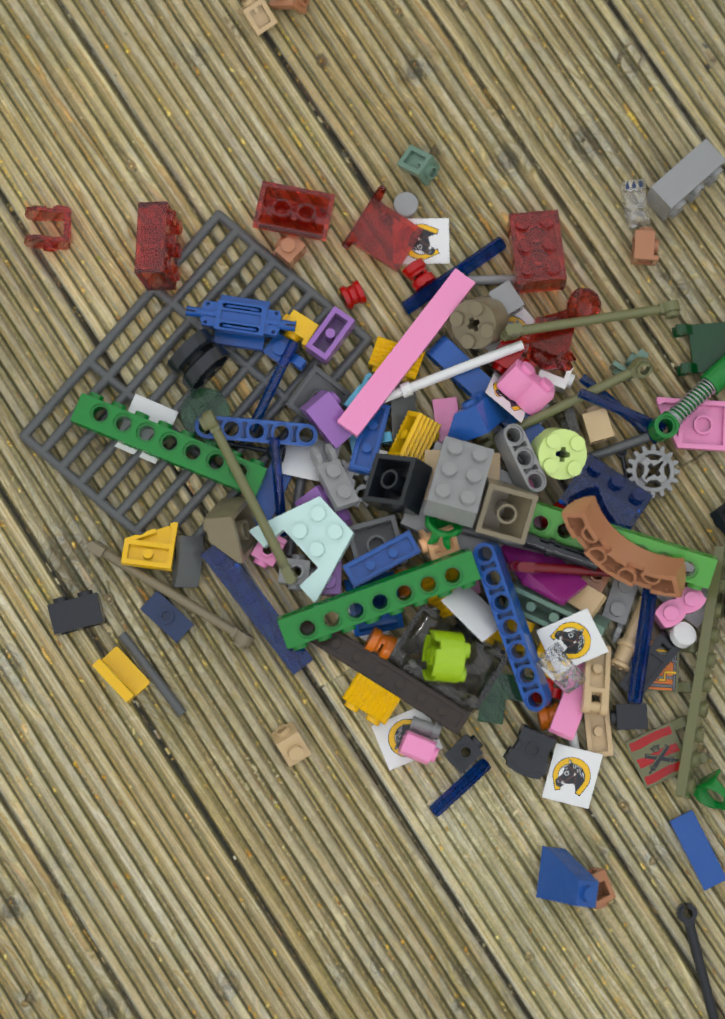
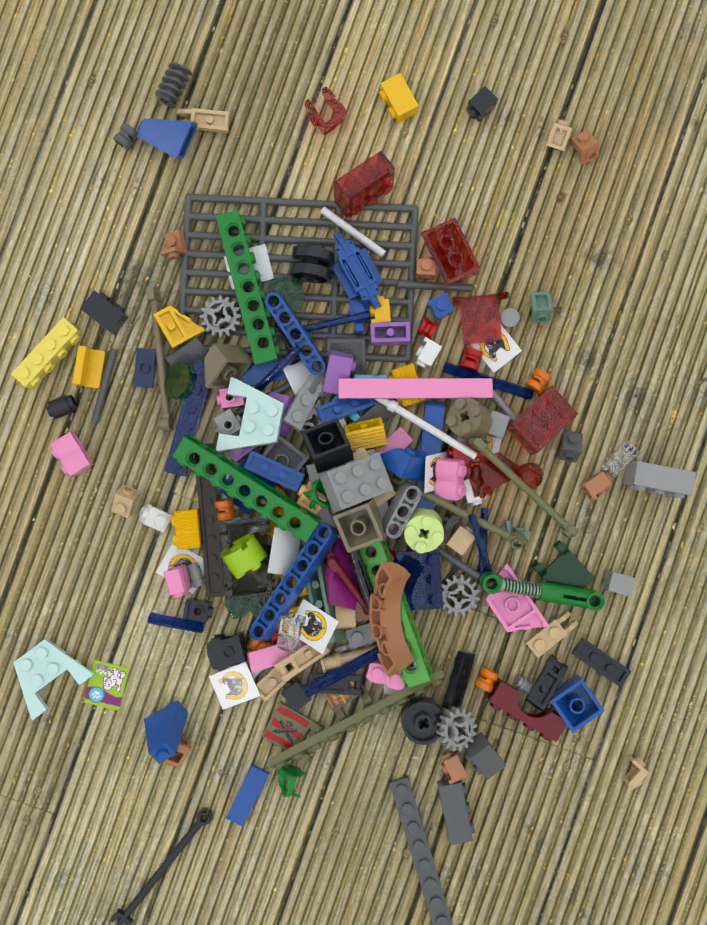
camera: 55 degrees right, 5 degrees up
(63, 487) = (175, 245): none -> nougat bracket
(73, 705) = (47, 354): none -> light yellow brick
(93, 145) = (398, 98): none -> yellow brick
(140, 734) = (61, 406): none -> black brick
(165, 67) = (481, 104): none -> black brick
(187, 489) = (213, 313): none -> light grey gear
(194, 294) = (353, 232): none -> white bar
(198, 762) = (72, 454): none -> bright pink brick
(209, 422) = (276, 301): olive hinge -> none
(211, 588) = (179, 380): none -> clear green tile
(313, 255) = (434, 286): none -> dark grey bar
(331, 725) = (154, 517): none -> white bracket
(341, 265) = (440, 307): none -> blue brick
(378, 314) = (427, 353): none -> white brick
(398, 967) = (42, 666): none -> light aqua wing
(469, 913) = (106, 685): none -> sticker
(493, 224) = (538, 380): none -> orange wheel
(585, 243) = (570, 446): none -> dark grey bracket
(683, 635) = (370, 690): white tile -> none

